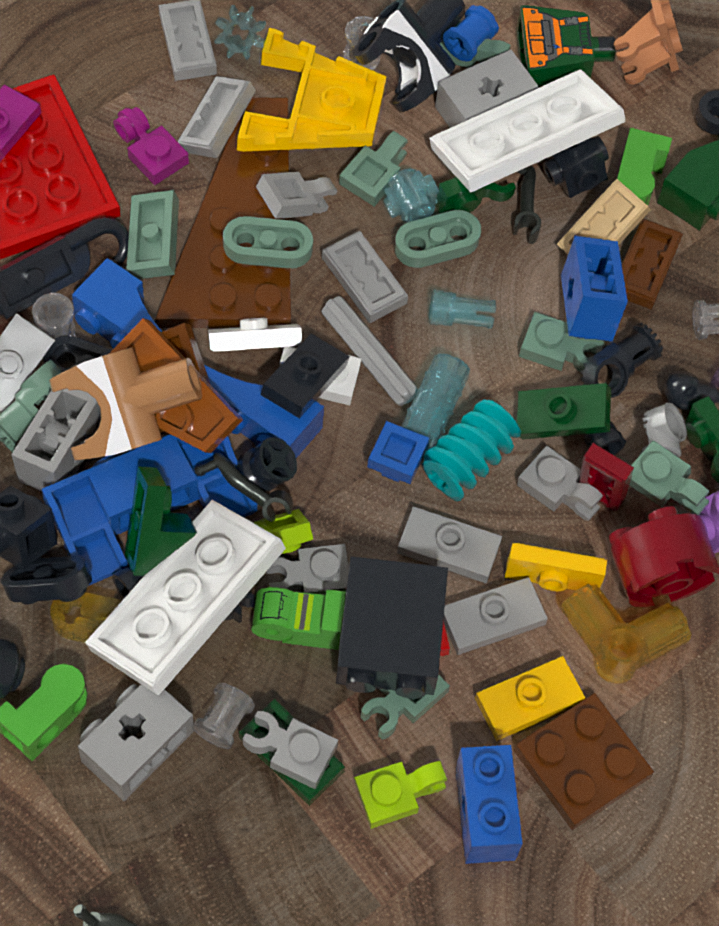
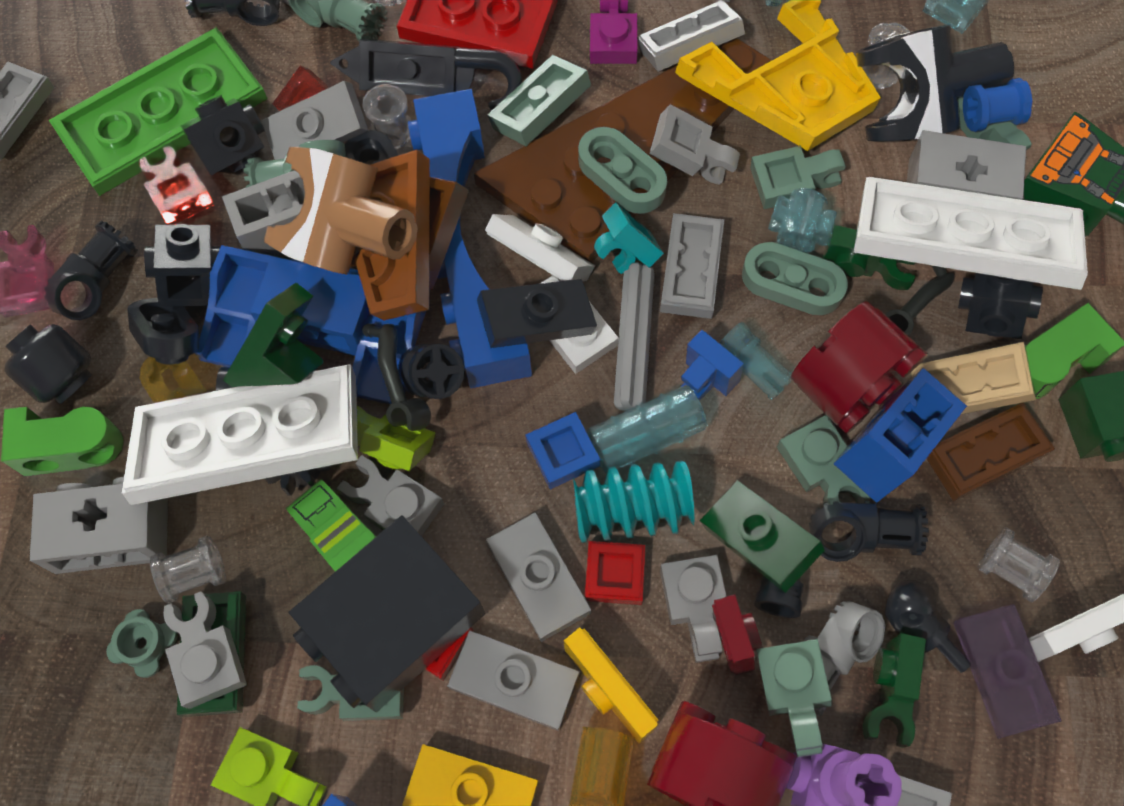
camera: 50 degrees right, 5 degrees up
(236, 772) = (125, 639): none -> sand green plate
(309, 290) = (629, 236): none -> teal tile
(438, 331) = (710, 366): none -> blue tile
(493, 505) = (615, 573): none -> red tile
(533, 265) = (857, 365): none -> dark red brick

